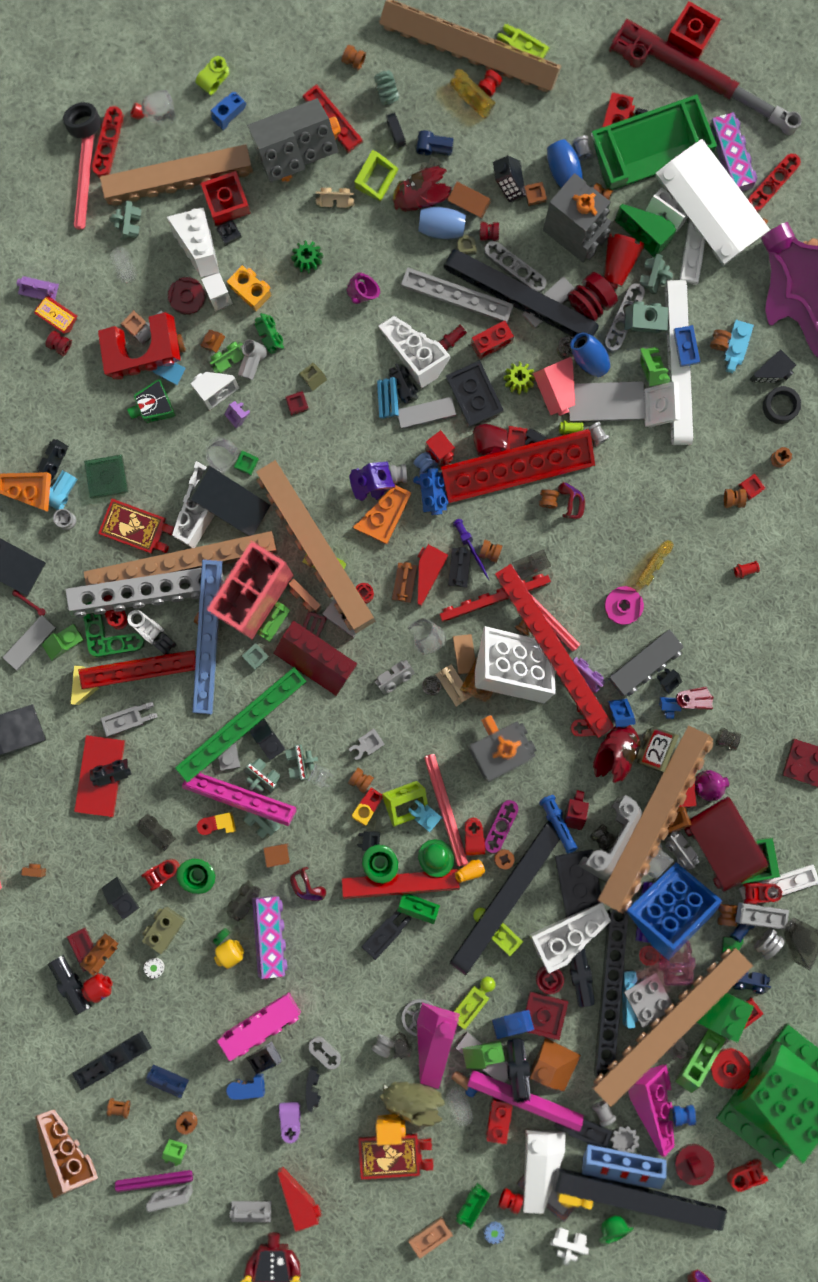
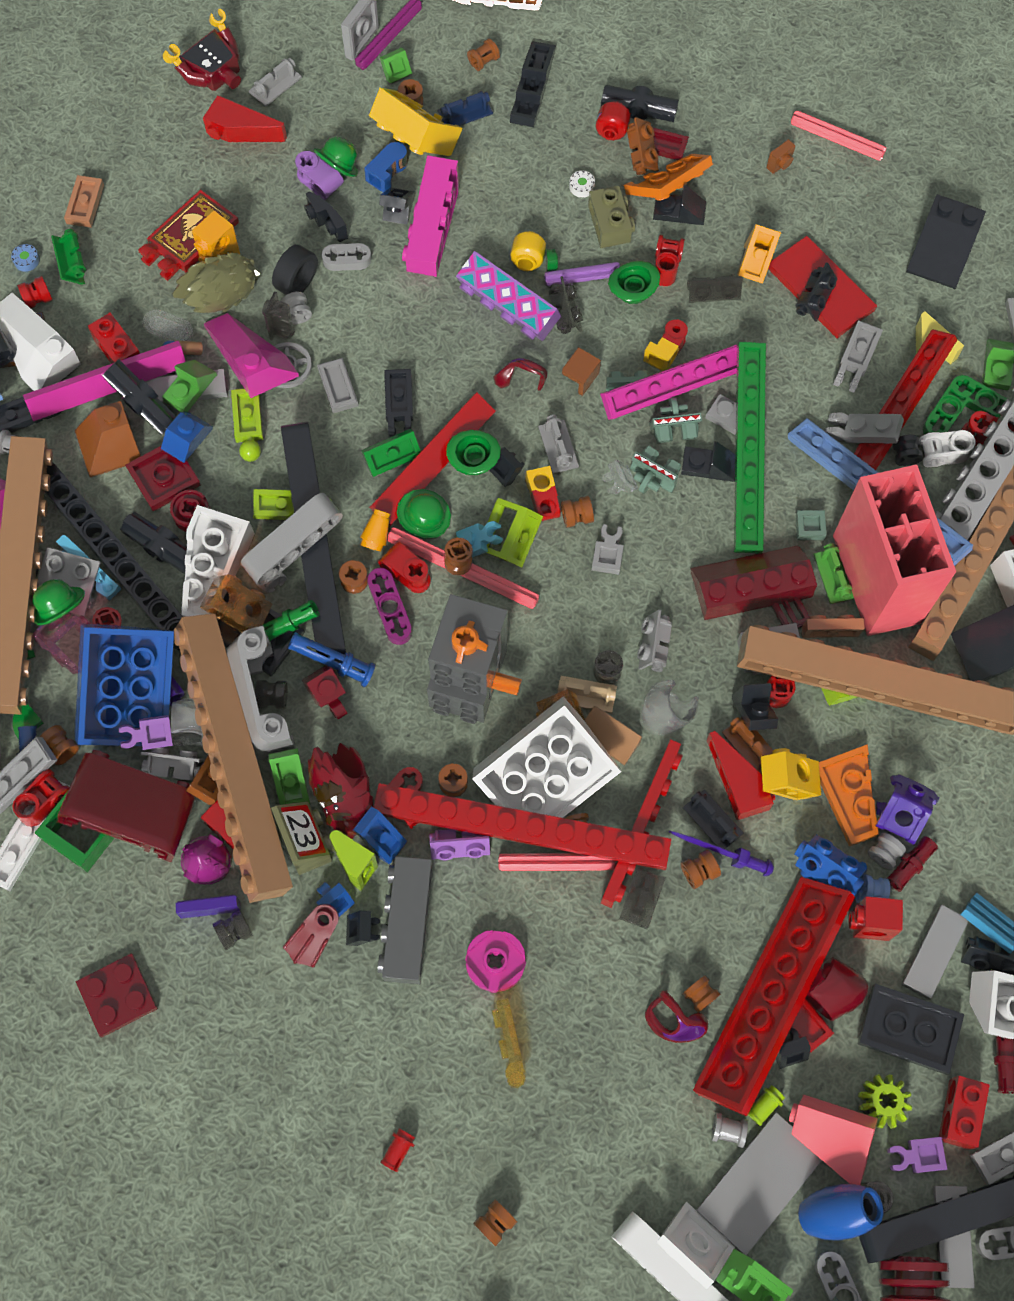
camera: 130 degrees right, 15 degrees down
(110, 919) = (677, 174): none -> orange wing
(114, 825) = (758, 253): none -> light orange slope
(173, 674) = (865, 427): none -> light grey hinge
(209, 1098) = (412, 124): none -> yellow wedge
(214, 912) = (581, 274): none -> medium lavender axle
(269, 1119) = (340, 155): none -> green hat
(330, 826) = (558, 445): none -> light grey hinge
(365, 1067) = (294, 270): none -> black tyre
(387, 594) = (754, 706): none -> black slope
(393, 457) = (912, 863): none -> dark red pin
(405, 978) = (337, 385): none -> light grey tile
(406, 547) = (790, 775): none -> yellow brick
(448, 811) = (461, 561): none -> dark orange wheel
(522, 903) = (290, 541): none -> light grey beam
(526, 342) = (923, 1154): none -> medium lavender plate
(555, 706) = (453, 787): none -> dark orange wheel
(560, 863) = (291, 619): none -> green pin
(582, 896) = (234, 611): none -> clear orange brick
(635, 784) = (289, 777): none -> bright green slope
(645, 714) = (356, 860): none -> lime tile
(667, 987) = (54, 600): none -> green hat
(681, 872) = (153, 733): none -> medium lavender plate
(729, 761) = (207, 906): none -> dark purple tile
(752, 486) = (489, 1262): red tile -> none

